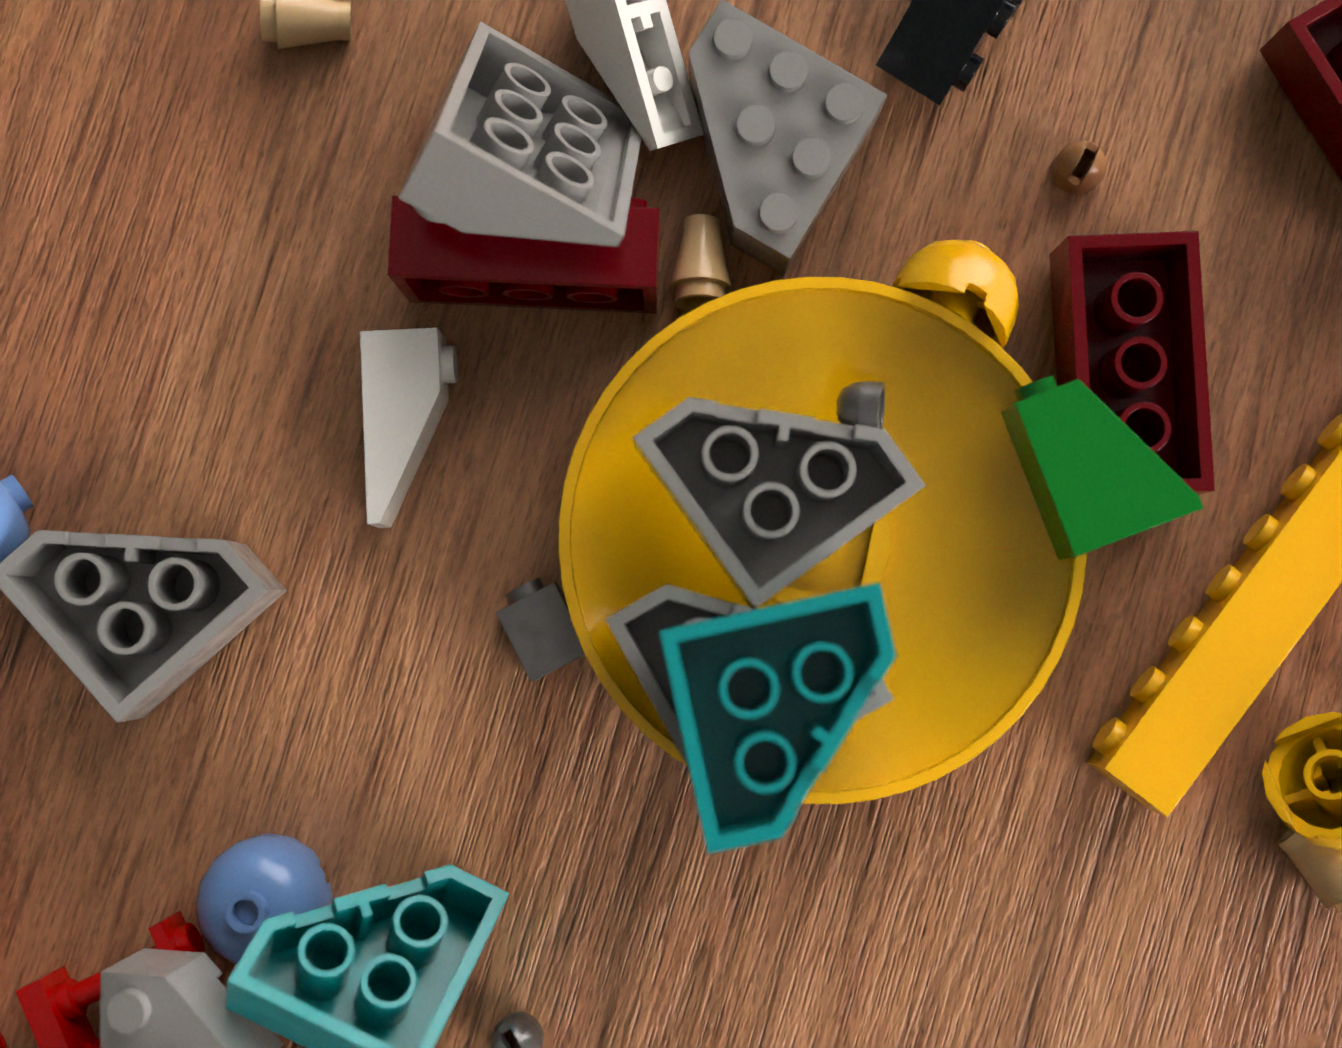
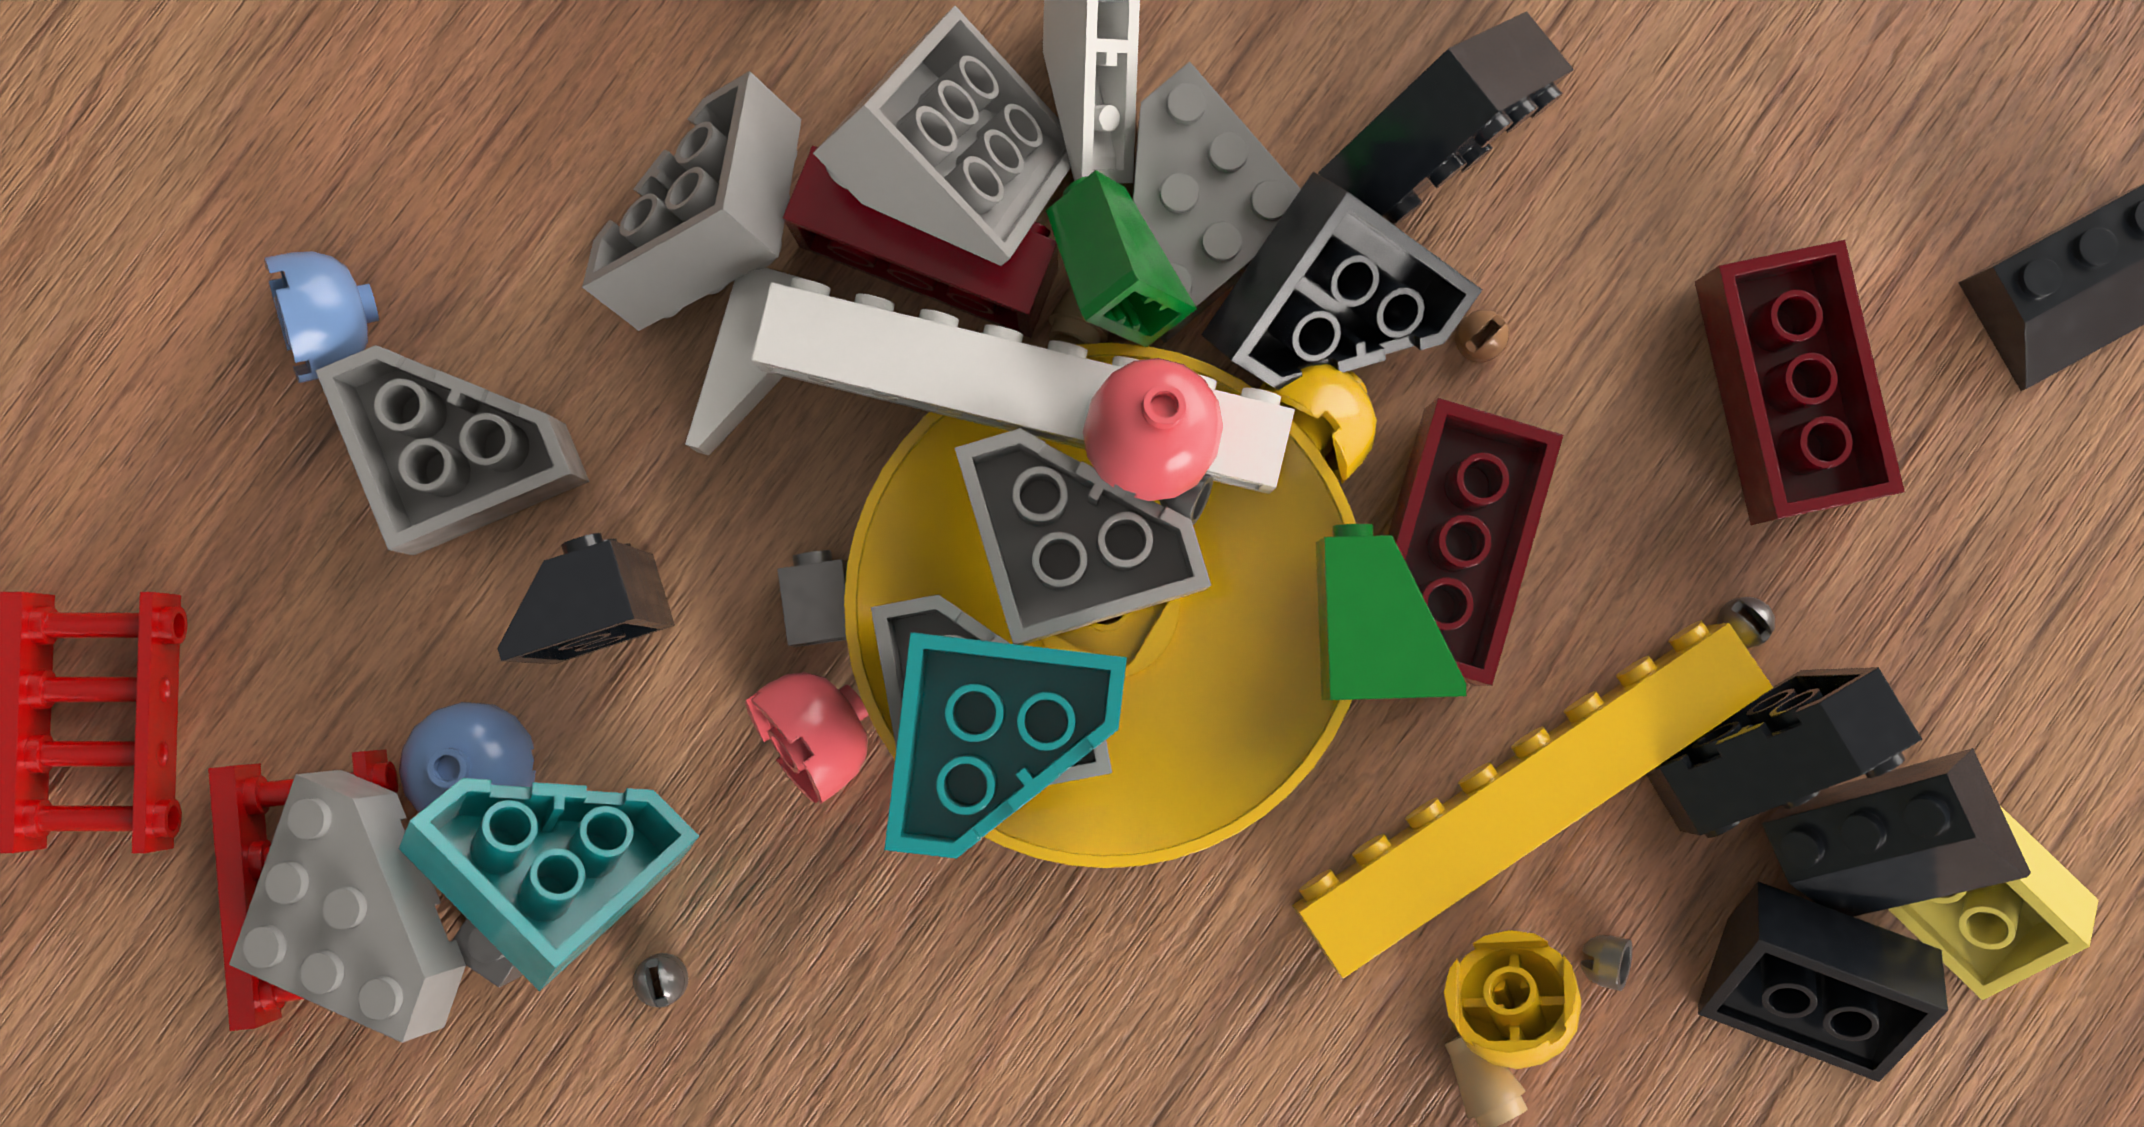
camera: 15 degrees right, 0 degrees up
(307, 297) = (704, 210): none -> light grey brick
(324, 707) = (587, 602): none -> black slope
(583, 755) = (812, 730): none -> coral cylinder
(672, 357) = (983, 375): none -> white brick
(721, 208) = (1116, 262): none -> green slope
(819, 353) = (1153, 429): none -> coral cylinder
(936, 166) = (1336, 292): none -> black brick

